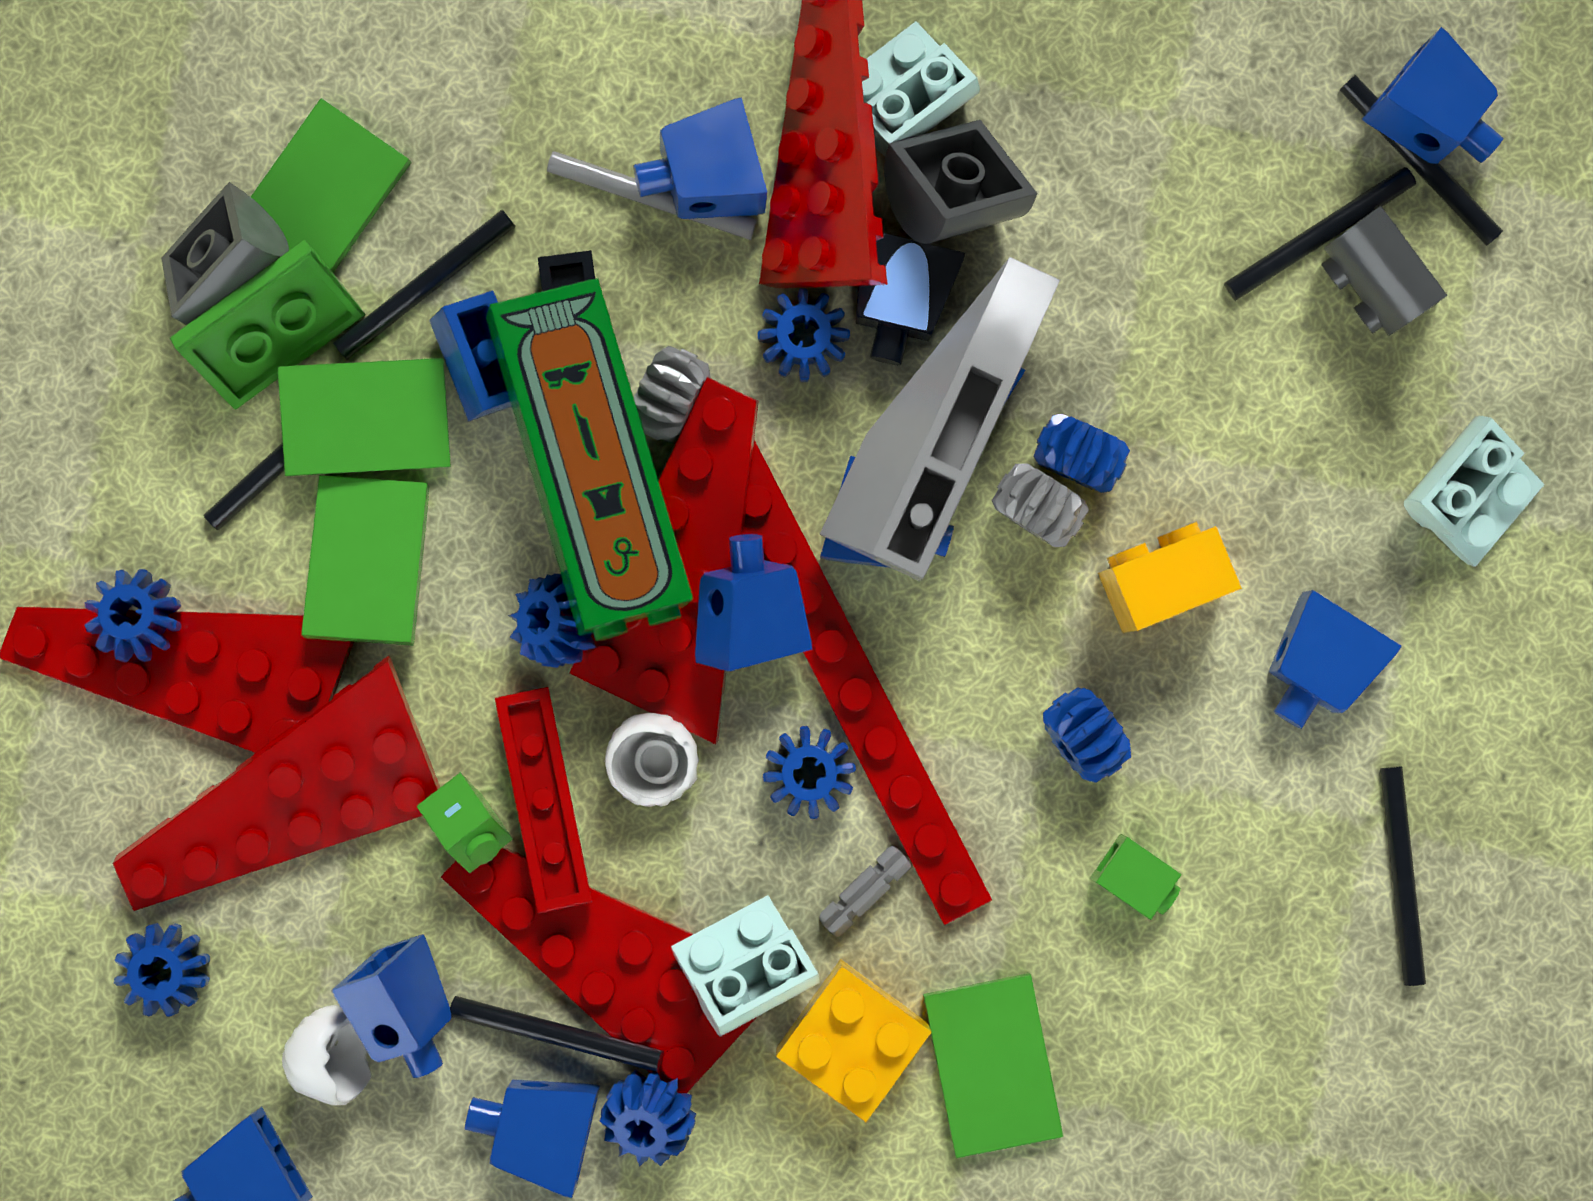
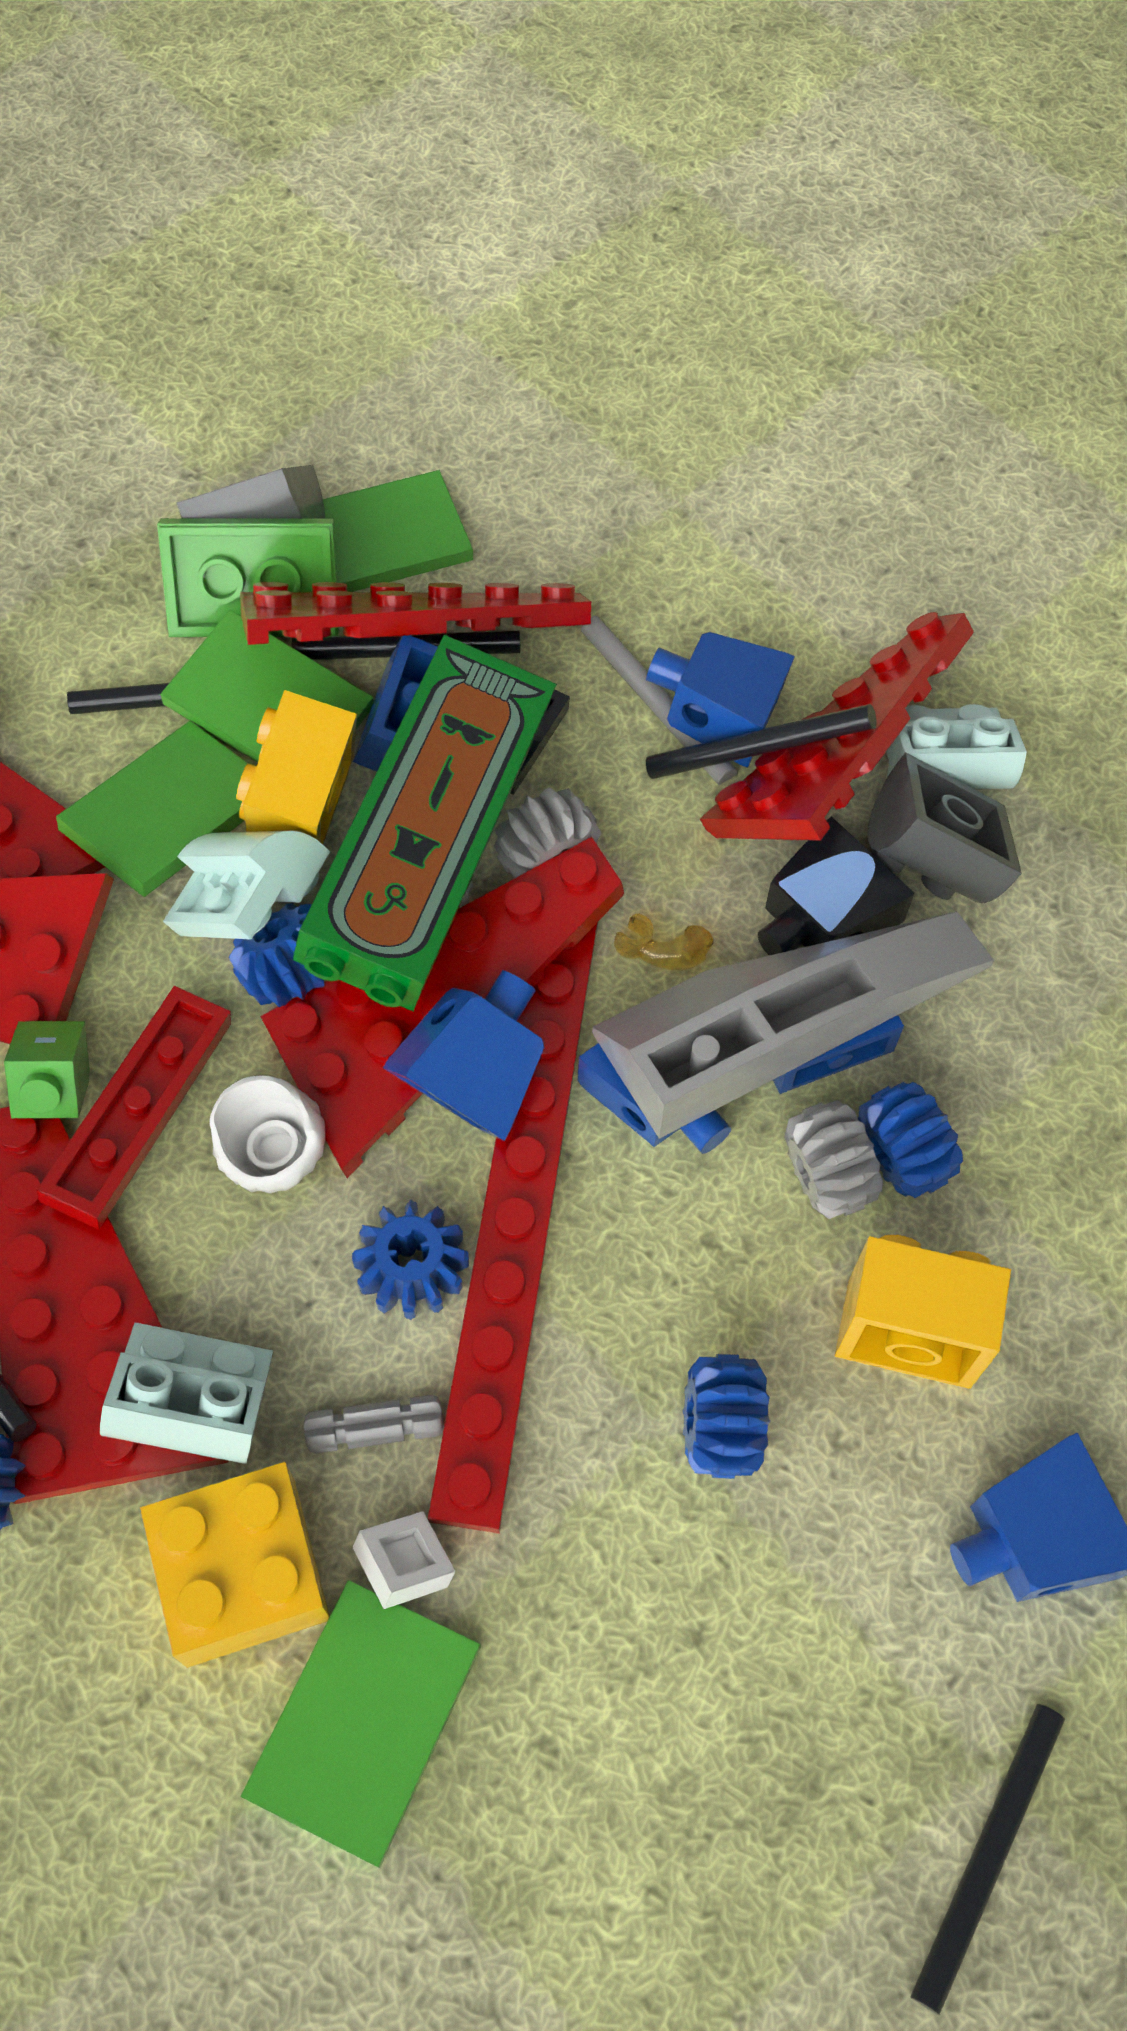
camera: 35 degrees right, 25 degrees down
(412, 291) = (393, 612): none -> red wing
(460, 483) = (299, 767): none -> yellow brick
(482, 590) = (241, 878): none -> light aqua brick
(772, 203) = (762, 741): none -> black bar
(785, 331) = (724, 894): blue gear -> none
(819, 412) = (677, 954): none -> clear yellow arm
(949, 961) = (403, 1559): none -> white plate
(1137, 877) = (675, 1617): bright green brick -> none

